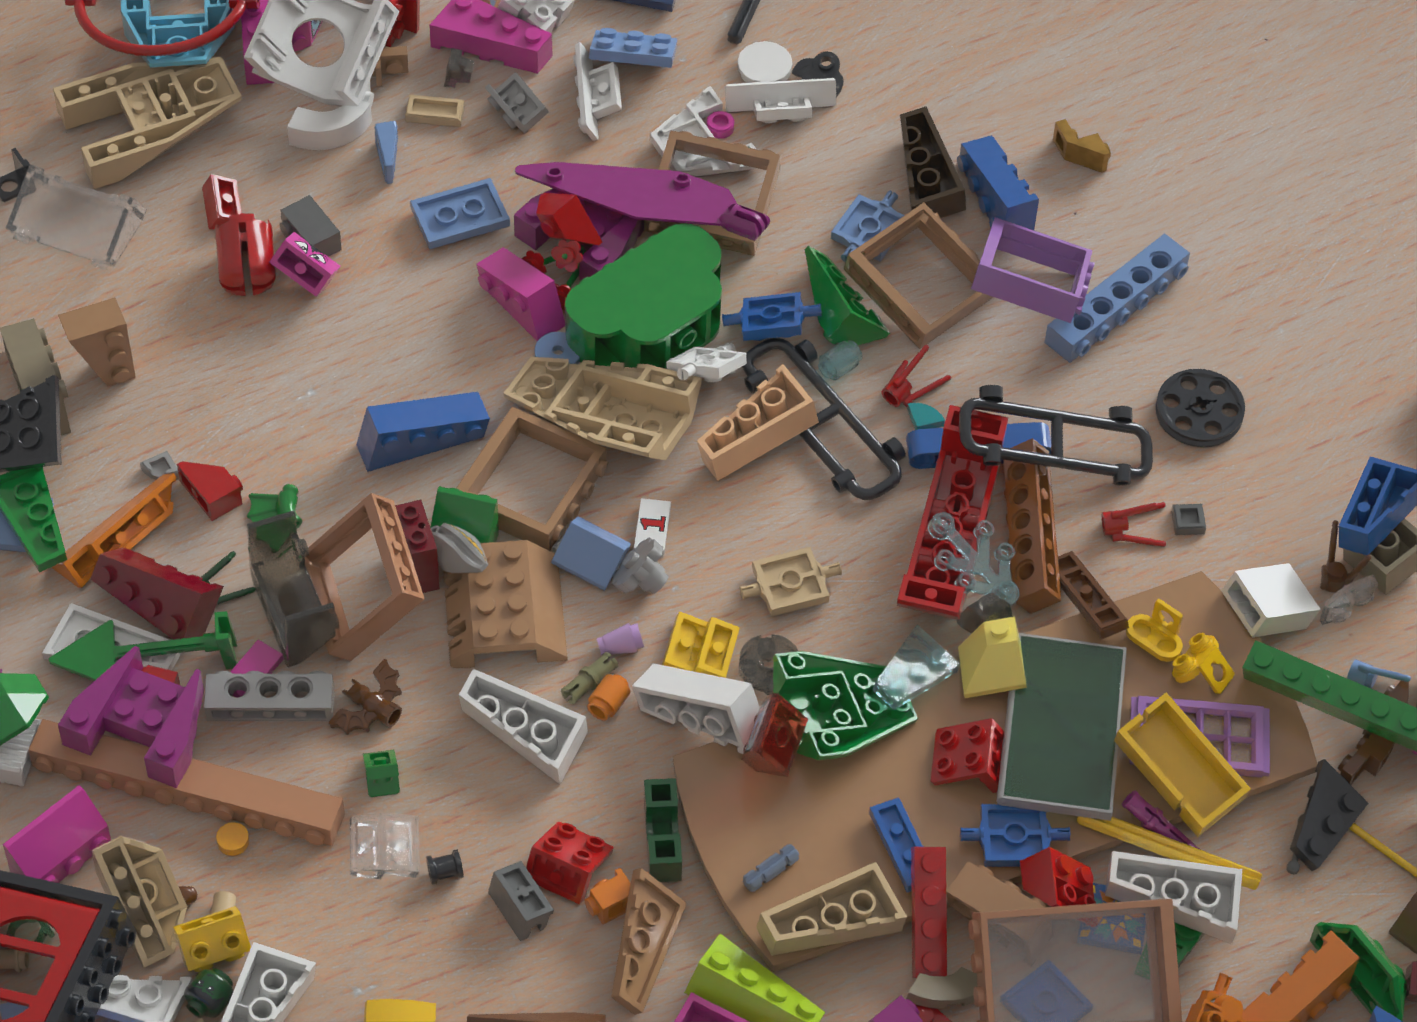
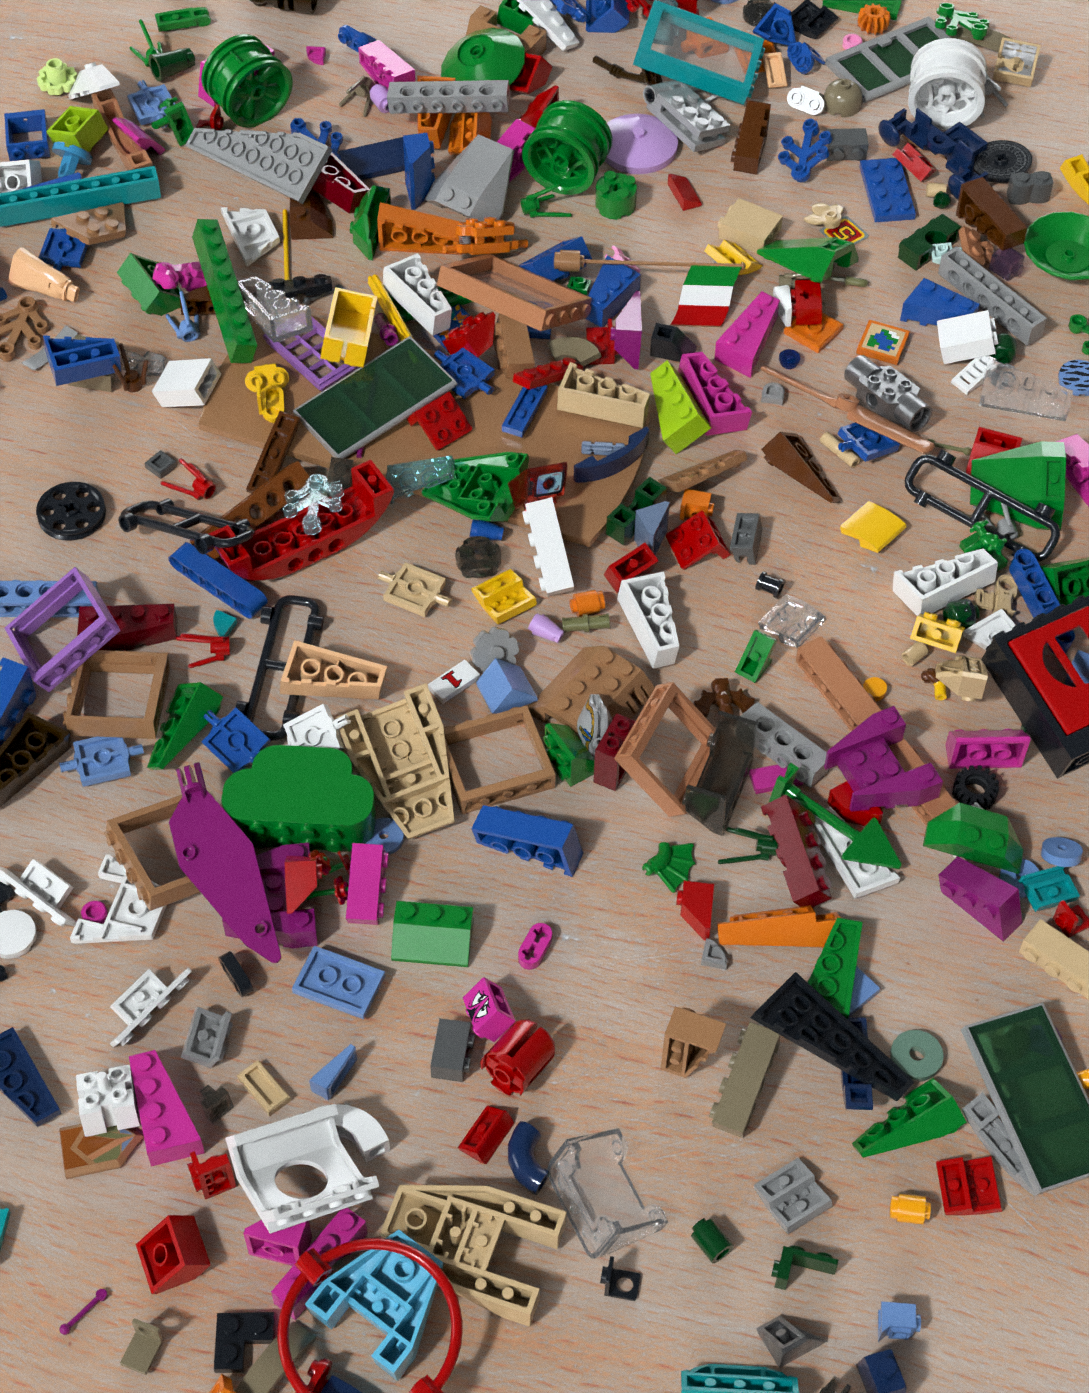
camera: 135 degrees left, 0 degrees up
(29, 788) = (978, 777): none -> black tyre
(171, 198) = (522, 1159): none -> dark blue cylinder
(332, 358) = (539, 948): none -> dark pink beam
(425, 303) = (432, 933): none -> slope
(542, 153) = (235, 974): none -> black beam
(600, 759) = (632, 565): none -> red brick
(621, 810) = (652, 525): none -> sand blue slope
(633, 48) = (82, 1011): medium blue plate -> none
(748, 828) = (593, 470): none -> dark blue slope
(840, 360) = (230, 687): clear light blue brick -> none
(992, 659) = (372, 443): light yellow slope -> none
(995, 341) = (138, 624): none -> dark red wedge
(1286, 722) = (273, 311): none -> clear wedge

